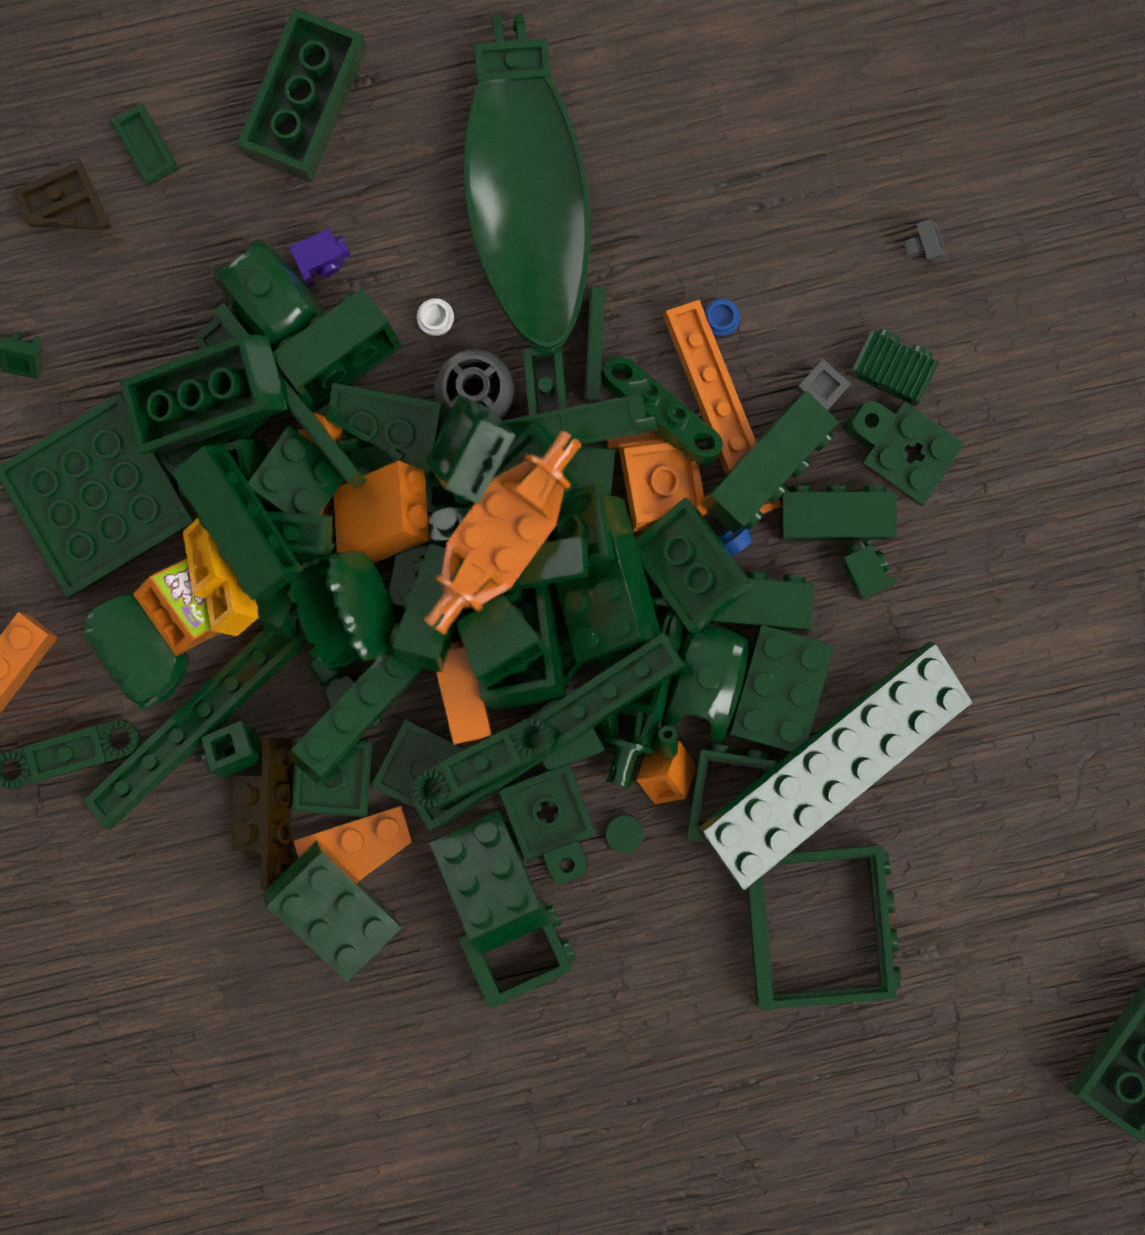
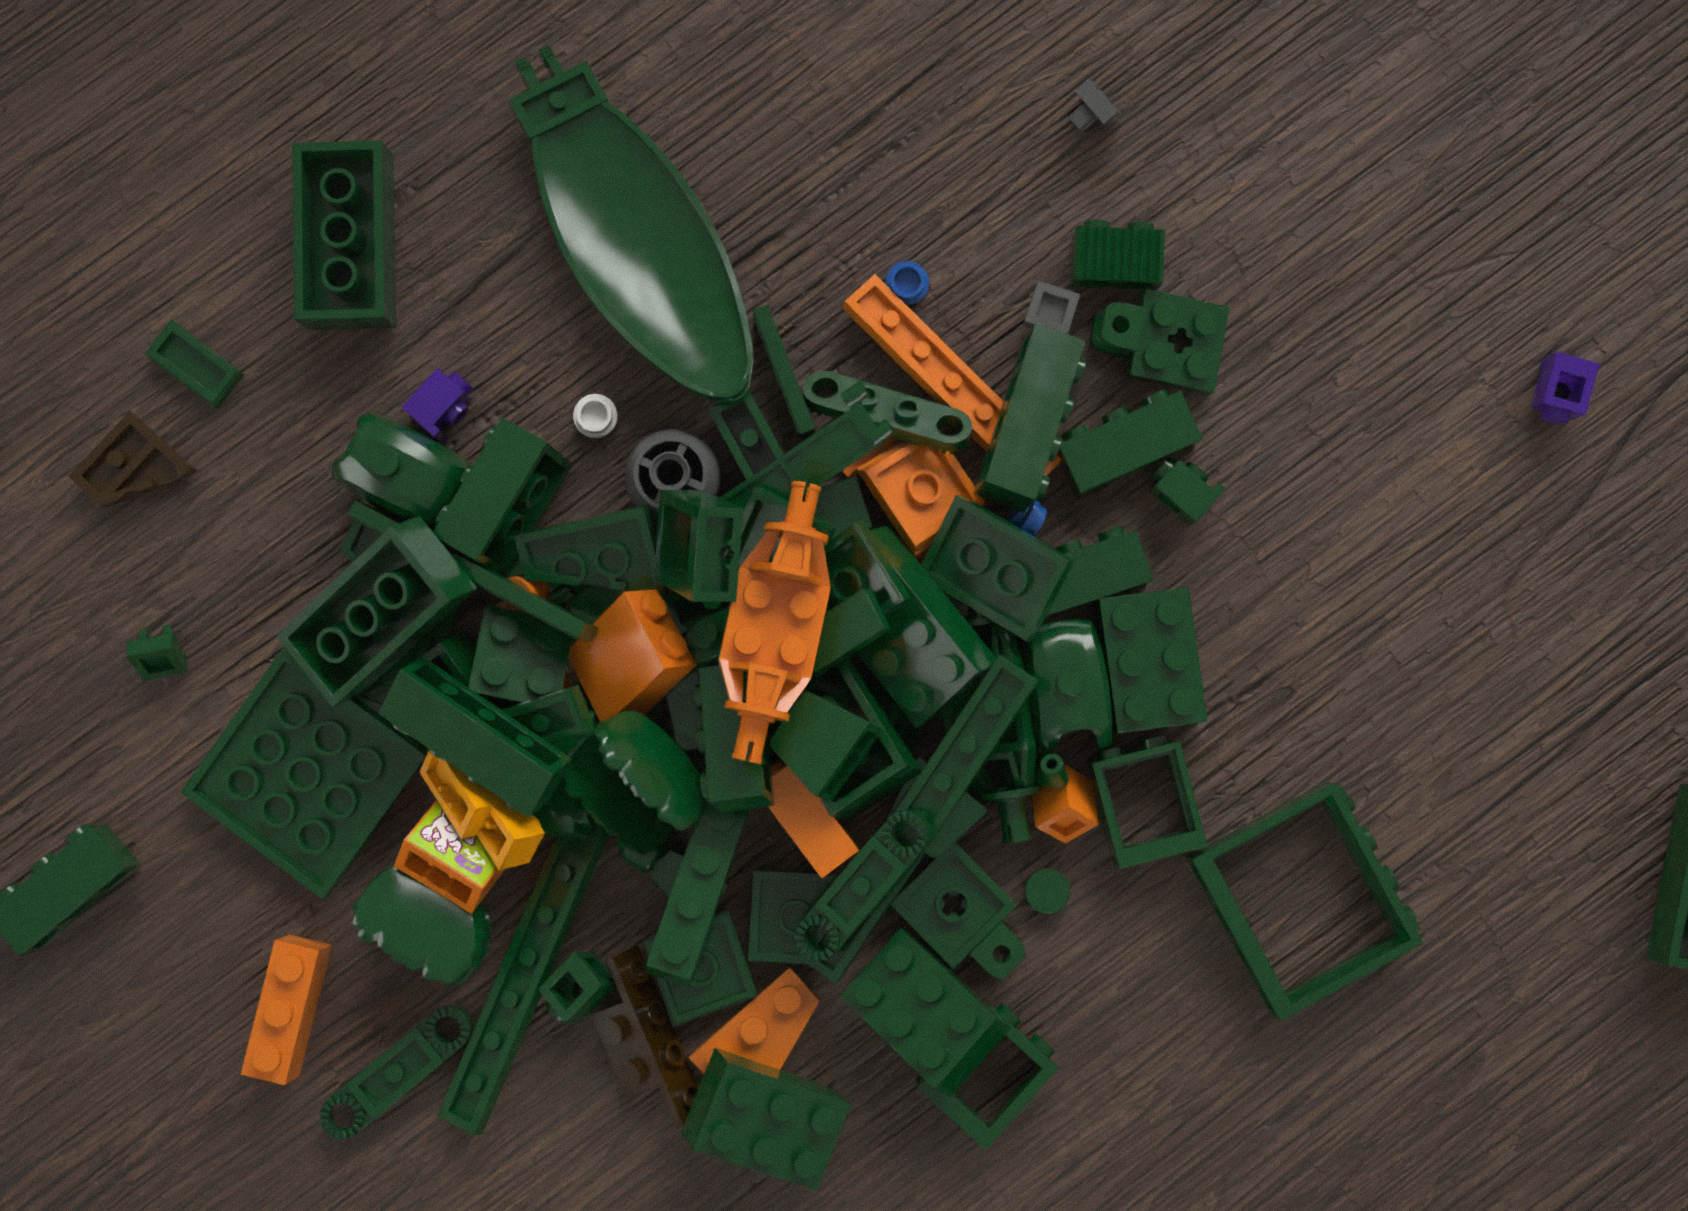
camera: 30 degrees left, 0 degrees up
(835, 765) = (1246, 718): plate -> none

